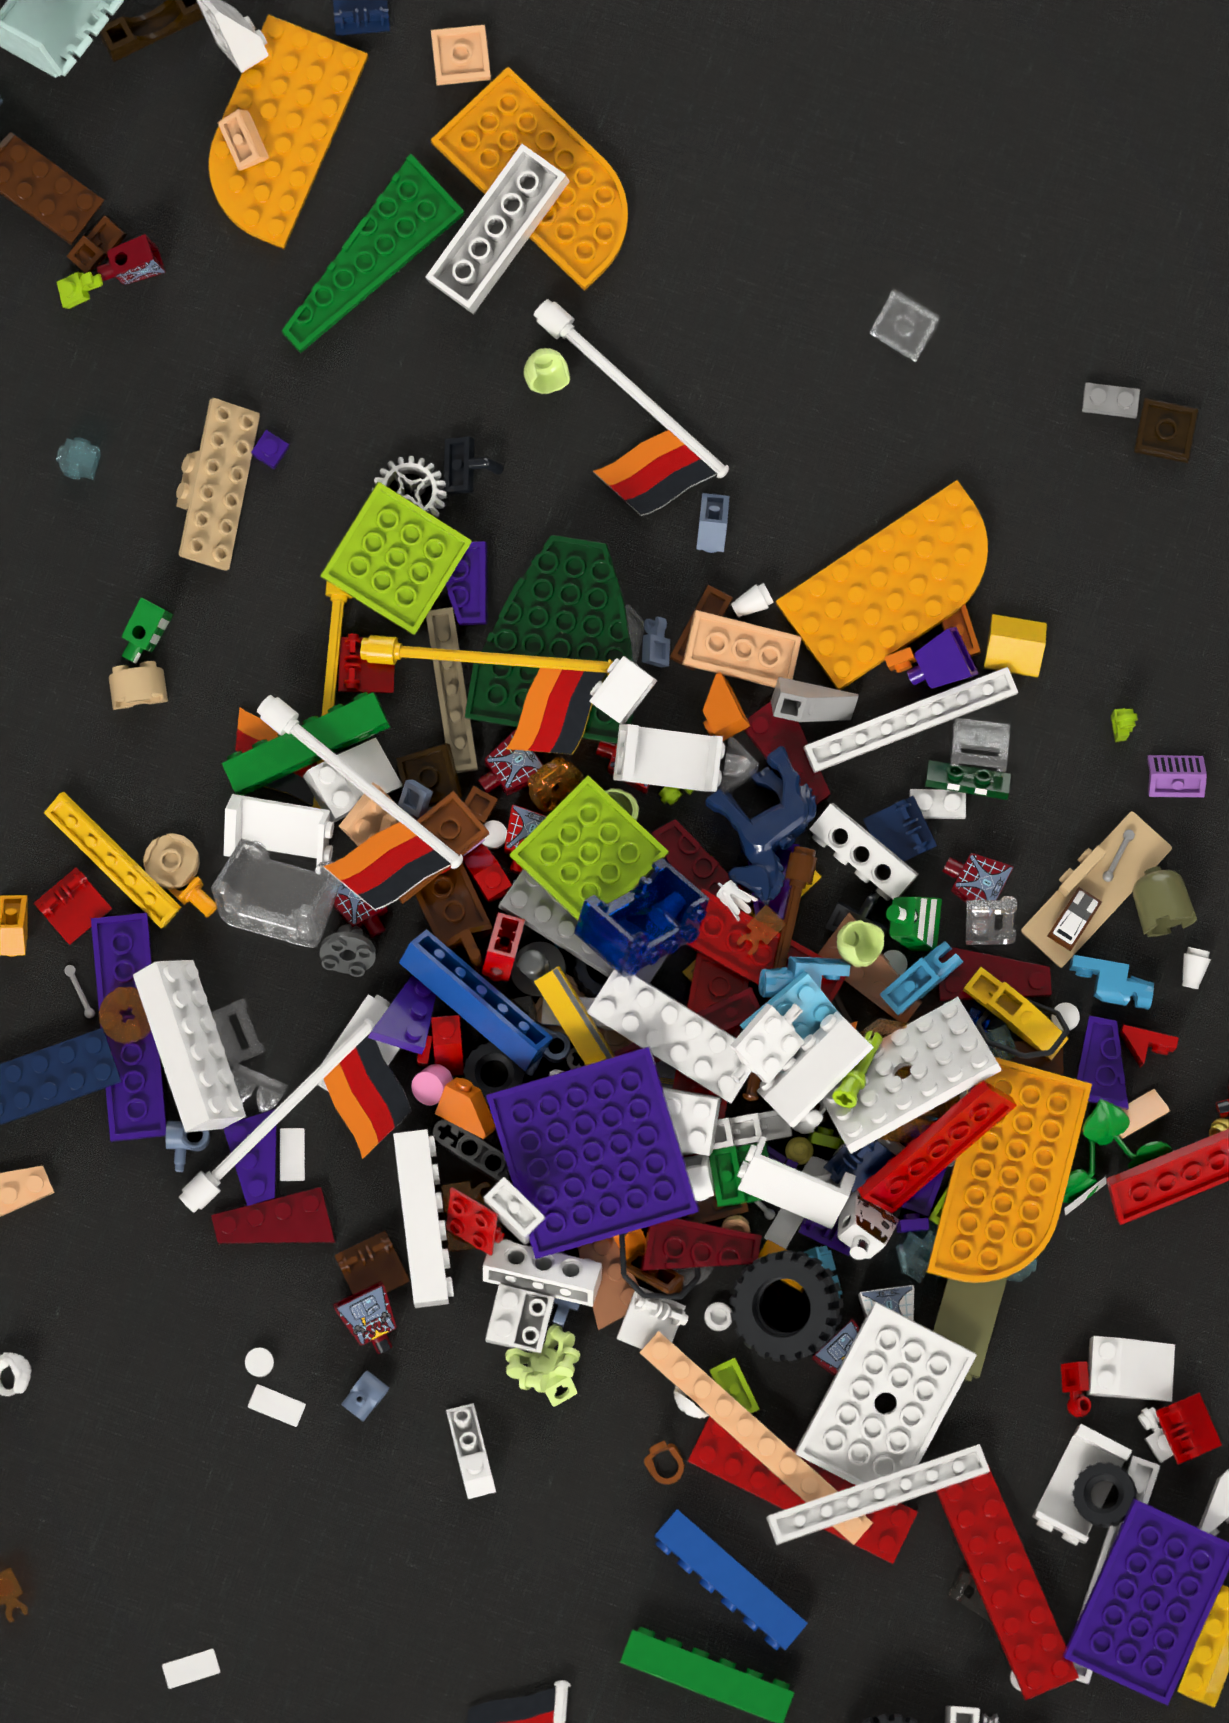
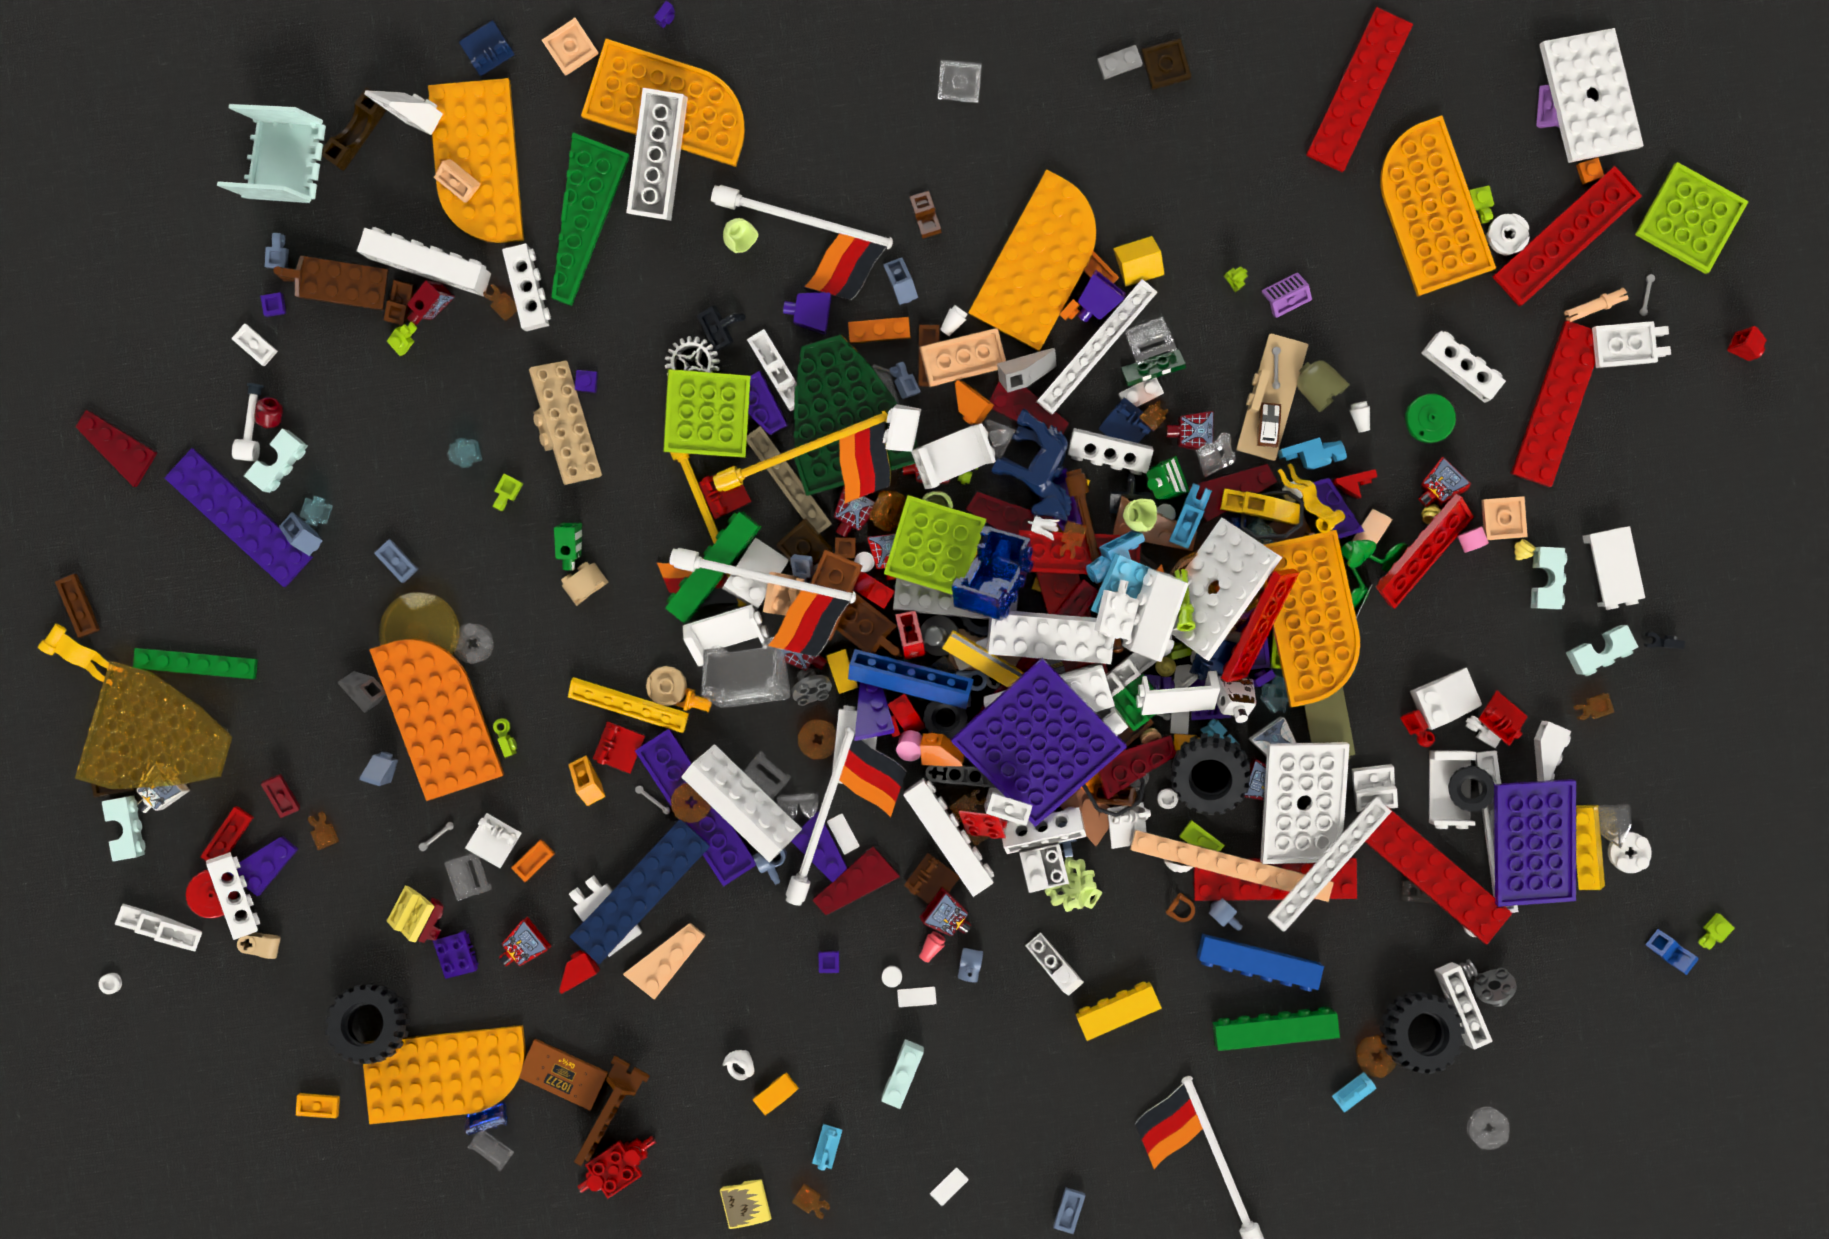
camera: 20 degrees left, 10 degrees up
(36, 1434) = (775, 1094): none -> light orange slope
(65, 1535) = (827, 1147): none -> medium azure hinge
(105, 527) = (508, 489): none -> lime plate
(154, 213) = (425, 262): none -> white brick
(190, 1302) = (829, 962): none -> dark purple plate
(208, 1489) = (902, 1074): none -> light aqua arch
(218, 309) = (502, 304): none -> clear orange plate
(262, 262) = (514, 257): none -> white brick
(311, 1009) = (806, 738): none -> clear orange plate
(329, 1349) = (932, 945): none -> coral cone
(395, 944) = (839, 667): none -> yellow tile
(506, 545) = (774, 366): none -> white slope
(520, 1550) = (1118, 1010): none -> yellow brick
(585, 502) = (810, 311): none -> dark purple torso
(593, 74) = (665, 14): none -> dark purple plate
(656, 567) = (879, 330): none -> orange plate
(714, 1492) = (1224, 913): none -> sand blue piece
(783, 460) = (925, 214): none -> reddish brown slope
(938, 837) = (1154, 415): none -> clear orange plate
(989, 1428) = (1373, 783): none -> white slope
(1088, 1062) = (1326, 515): none -> yellow flag

